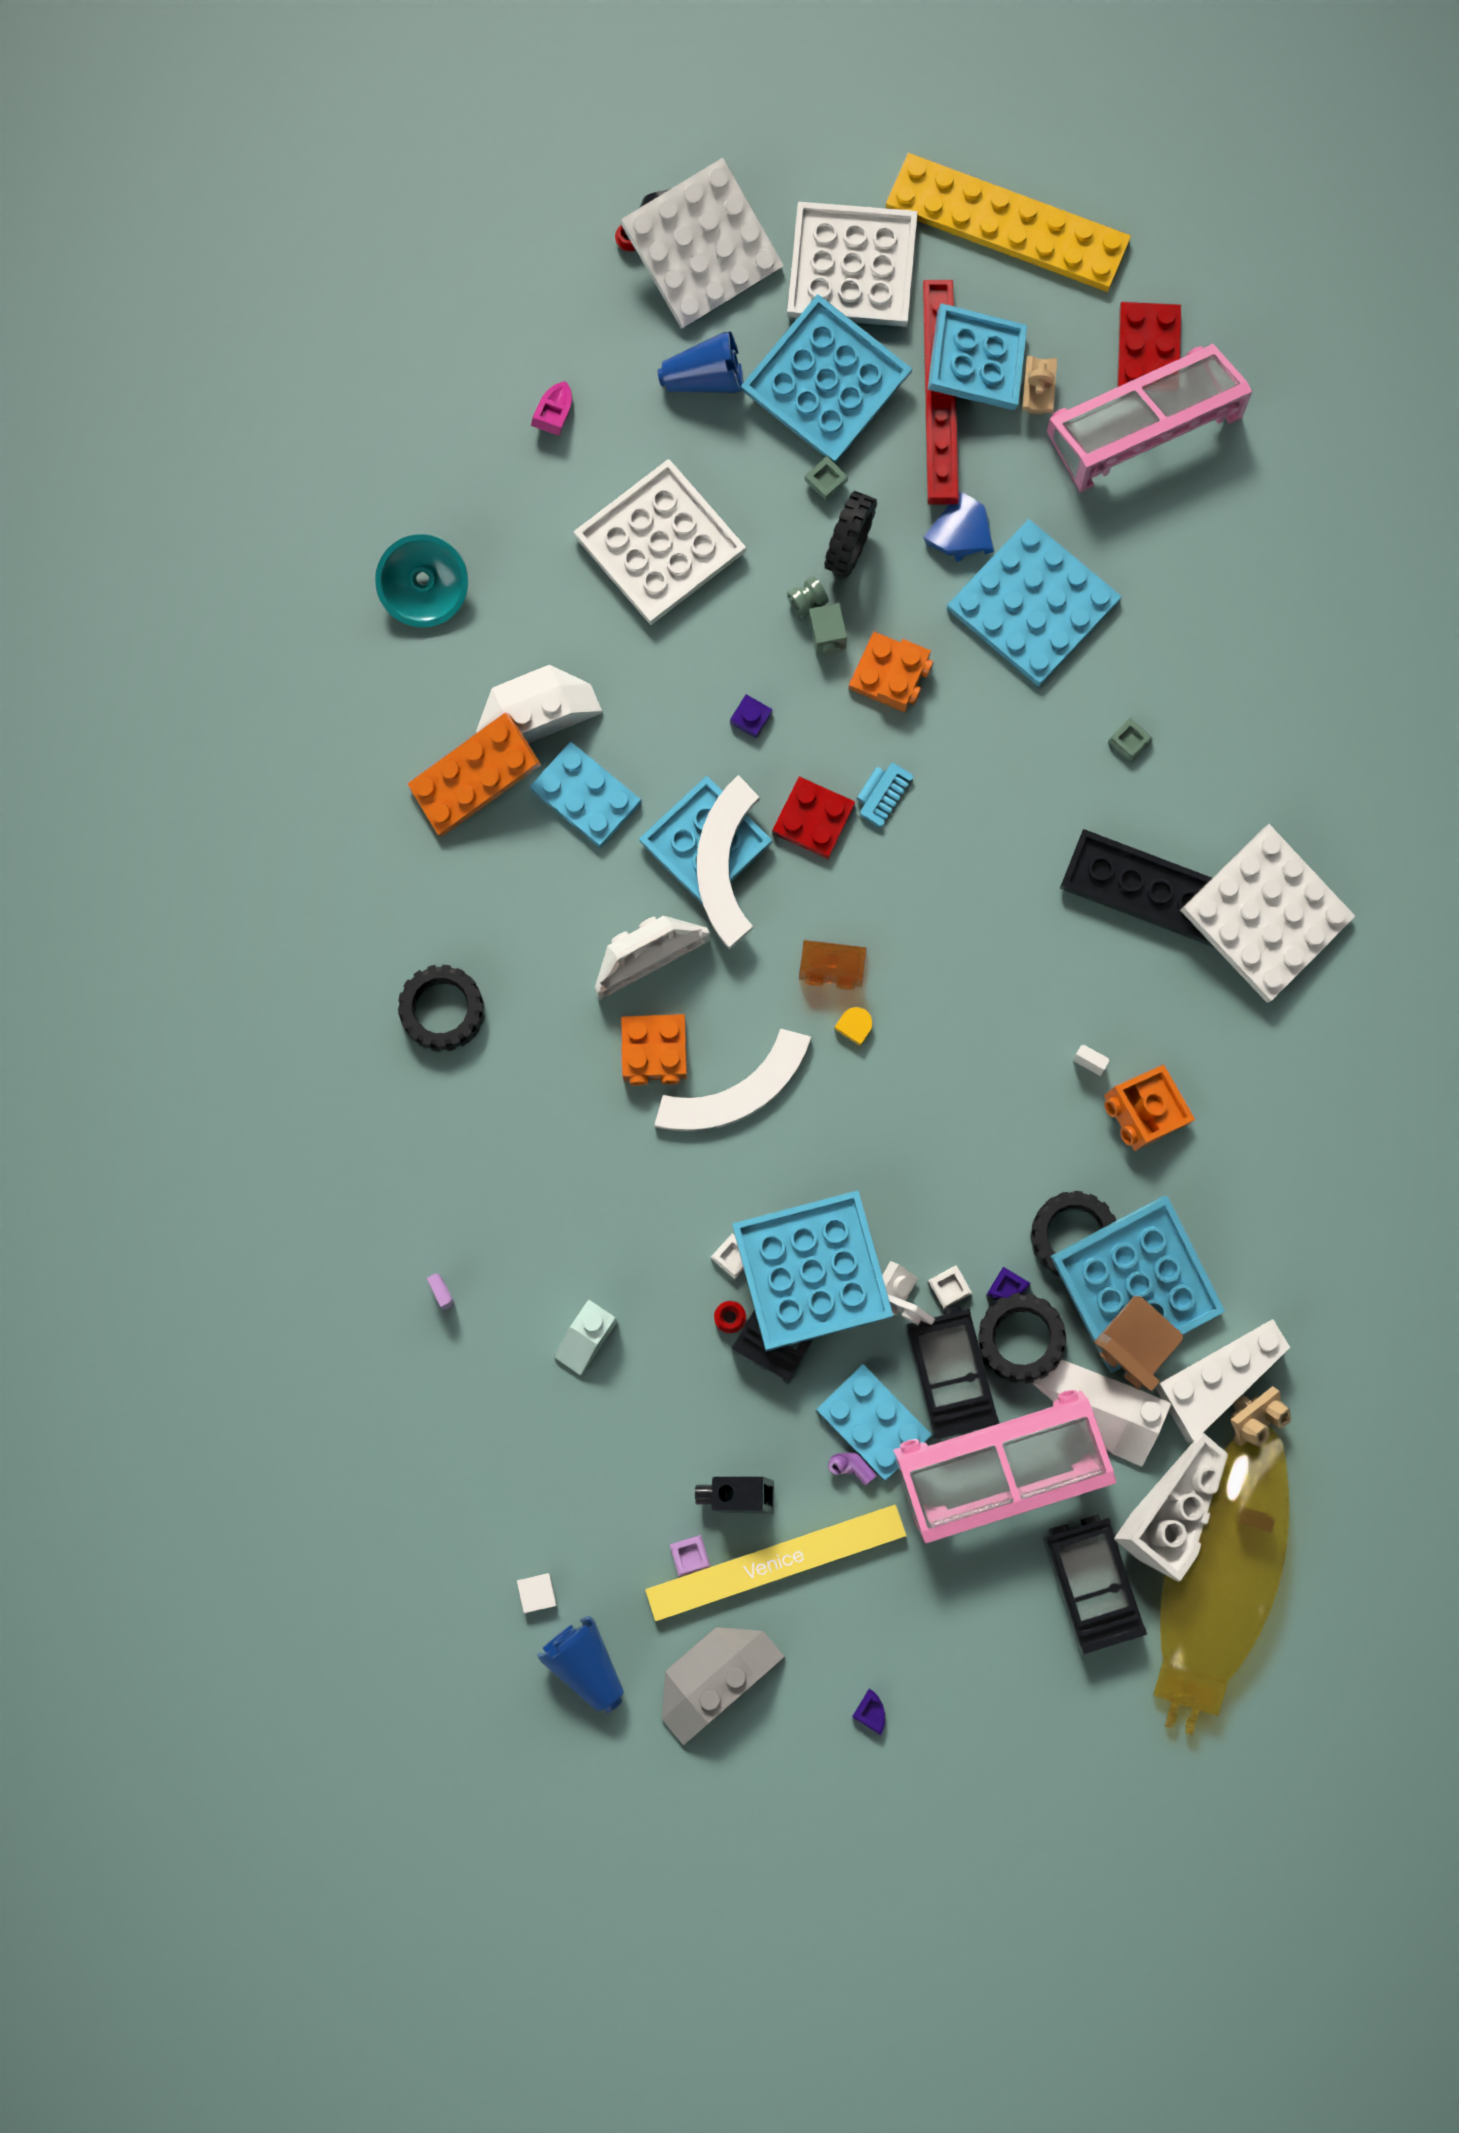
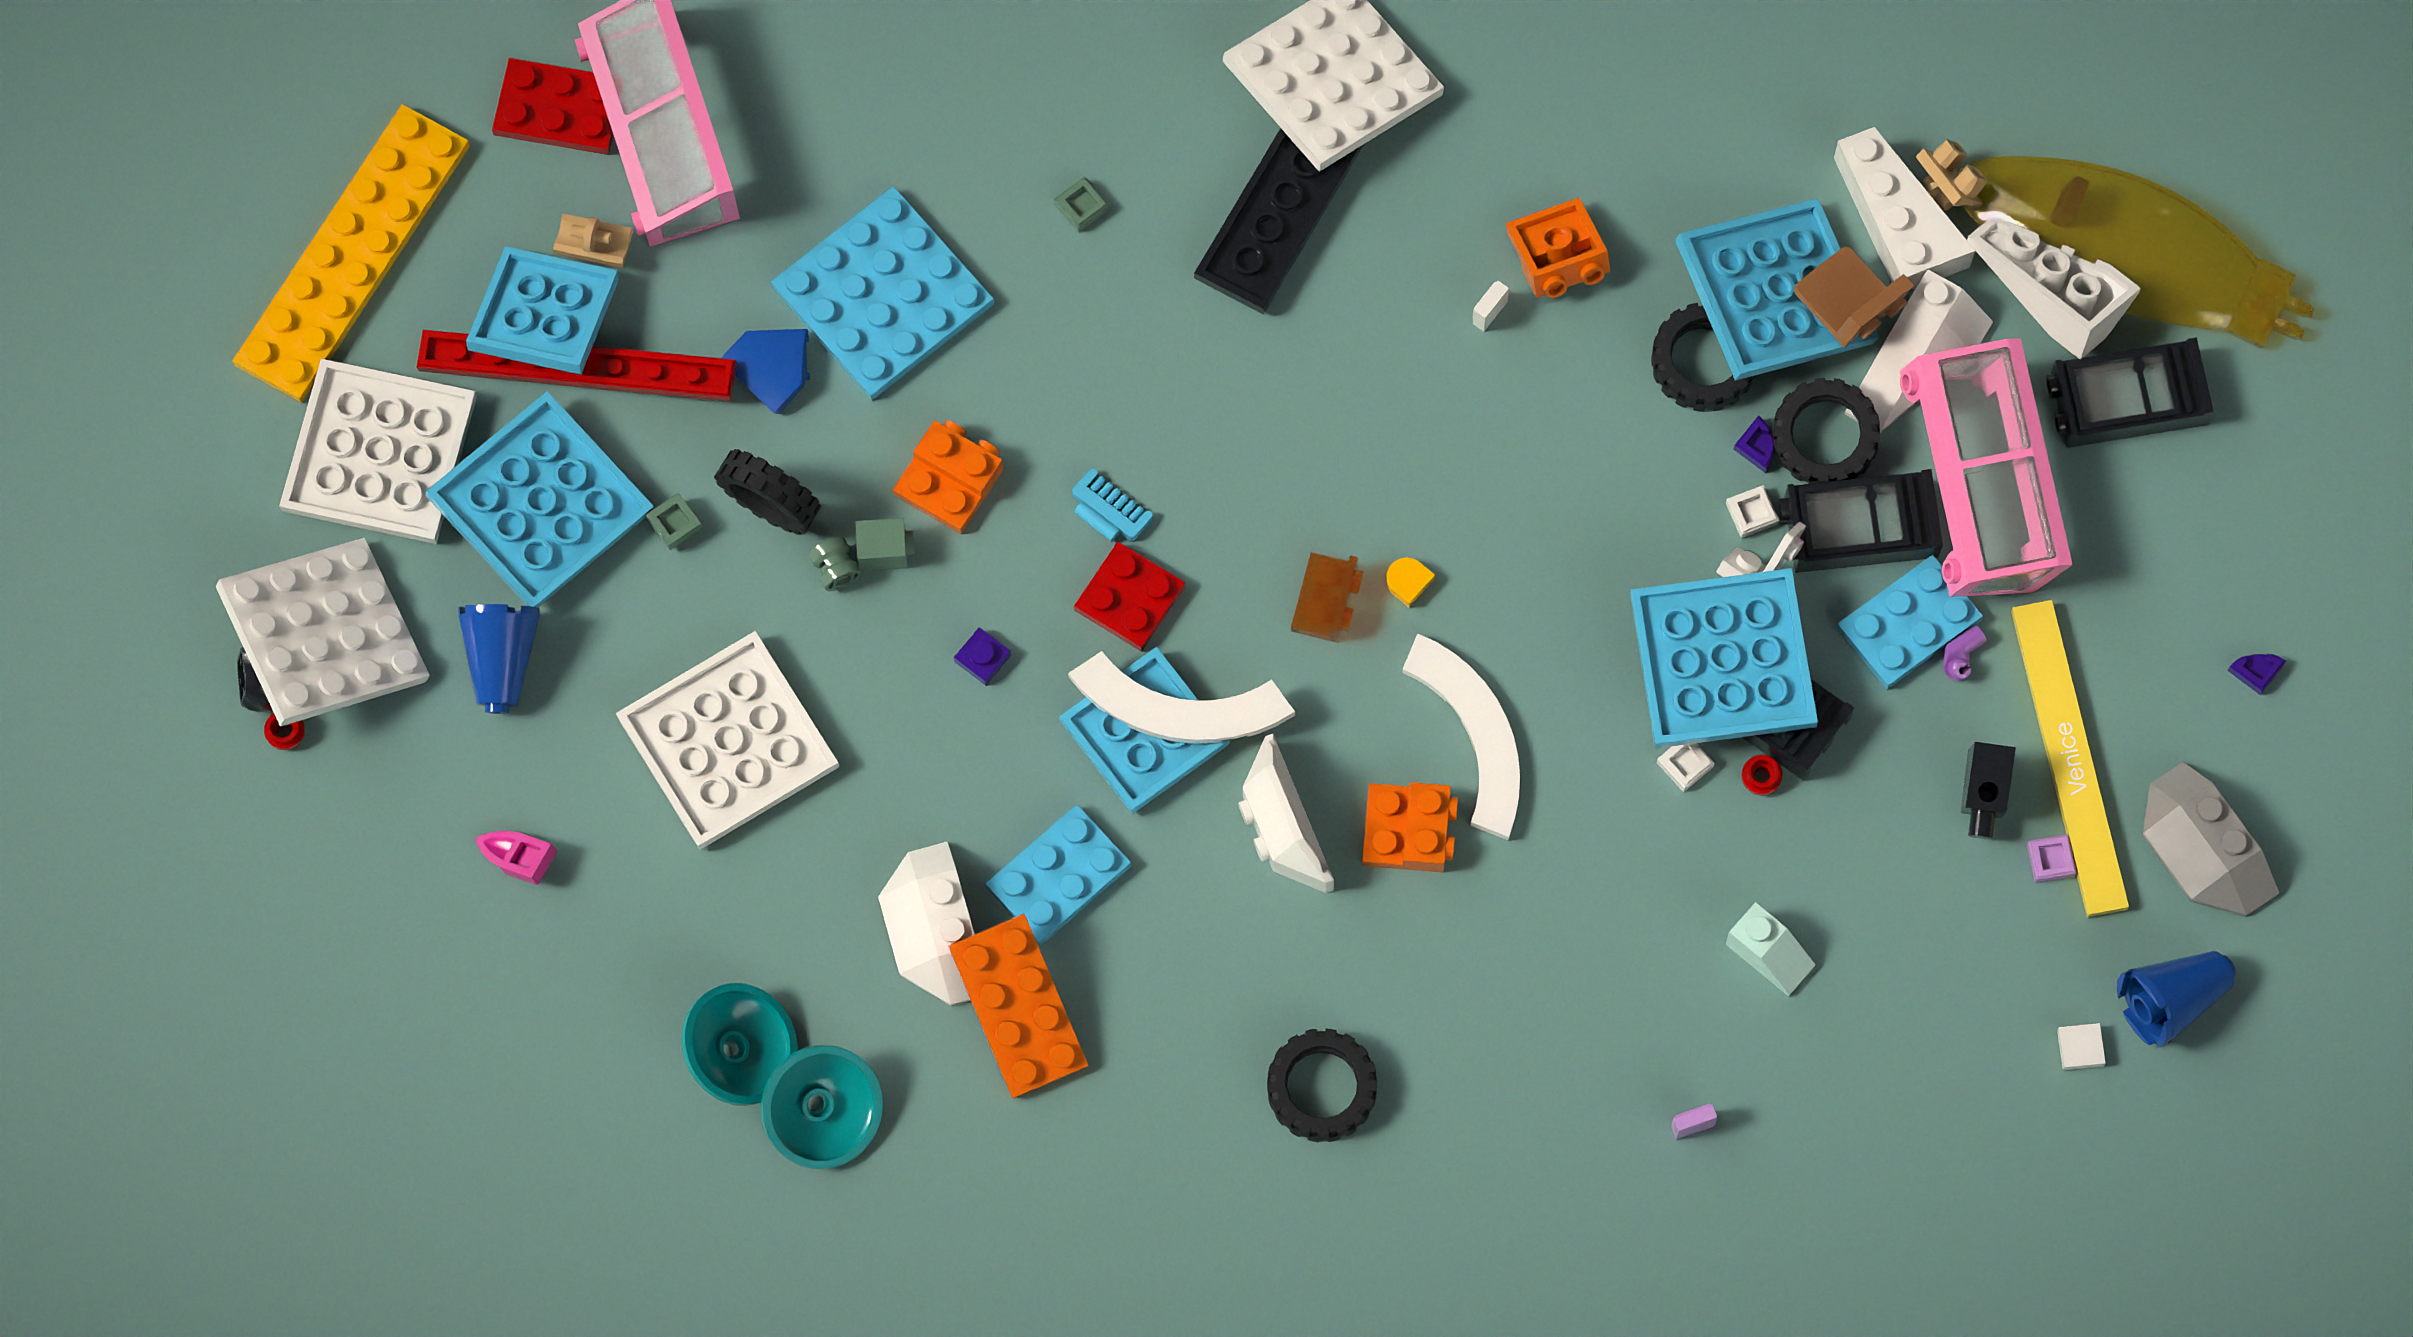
camera: 85 degrees left, 5 degrees down
(365, 649) = (846, 1111): none -> teal dish

